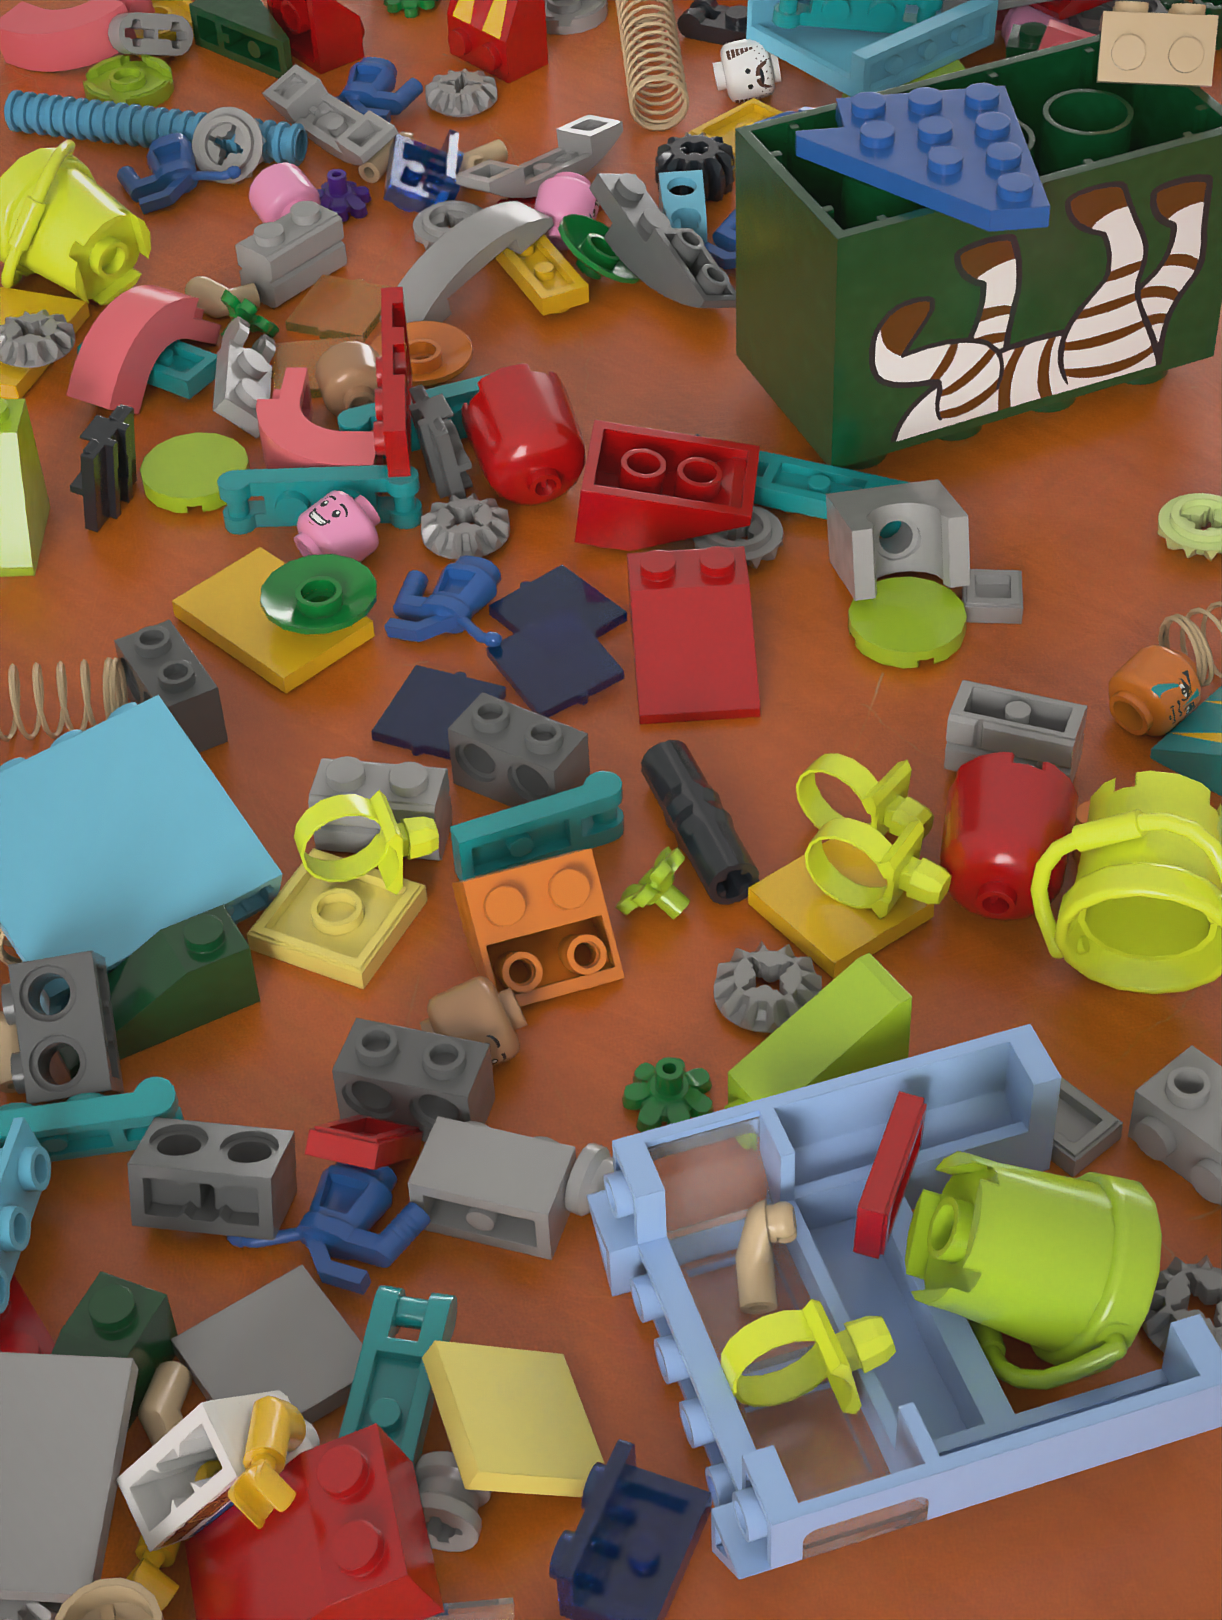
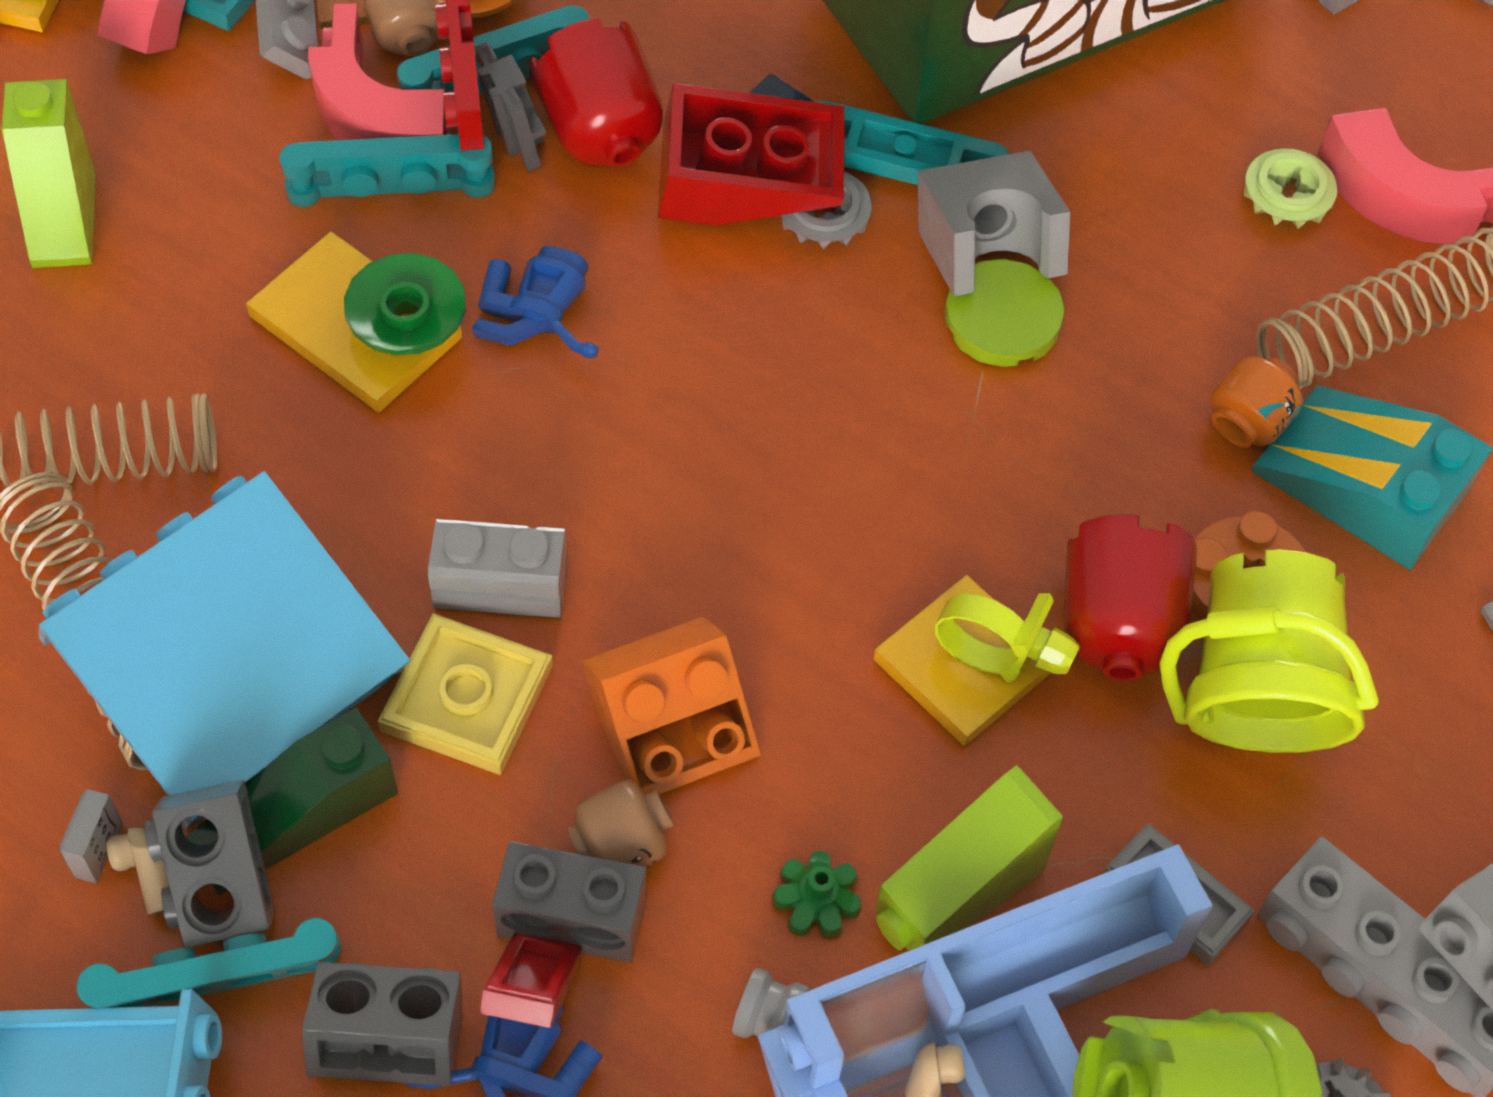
camera: 10 degrees left, 15 degrees up
(107, 466) = (156, 137): black piece -> none
(164, 665) = (262, 421): dark grey brick -> none
(187, 470) = (245, 128): lime tile -> none
(338, 527) = (412, 213): bright pink head -> none
(408, 839) = (512, 619): neon yellow piece -> none
(427, 708) = (540, 435): clear blue piece -> none
(468, 539) = (545, 217): light grey gear -> none
(493, 1186) = (661, 1014): light grey brick -> none
(515, 752) = (633, 501): dark grey brick -> none
(541, 828) = (660, 587): teal plate -> none
(552, 594) = (648, 306): clear blue piece -> none
(555, 663) = (654, 373): clear blue piece -> none
(657, 887) = (783, 651): lime plant -> none
(692, 635) = (792, 340): red slope -> none
(699, 822) = (820, 571): black axle -> none
(762, 1007) = (900, 790): light grey gear -> none
(884, 800) = (1002, 551): neon yellow piece -> none
(889, 1175) = (1053, 1013): red tile -> none
(994, 596) = (1090, 279): light grey tile -> none
(1007, 720) = (1127, 467): light grey brick -> none

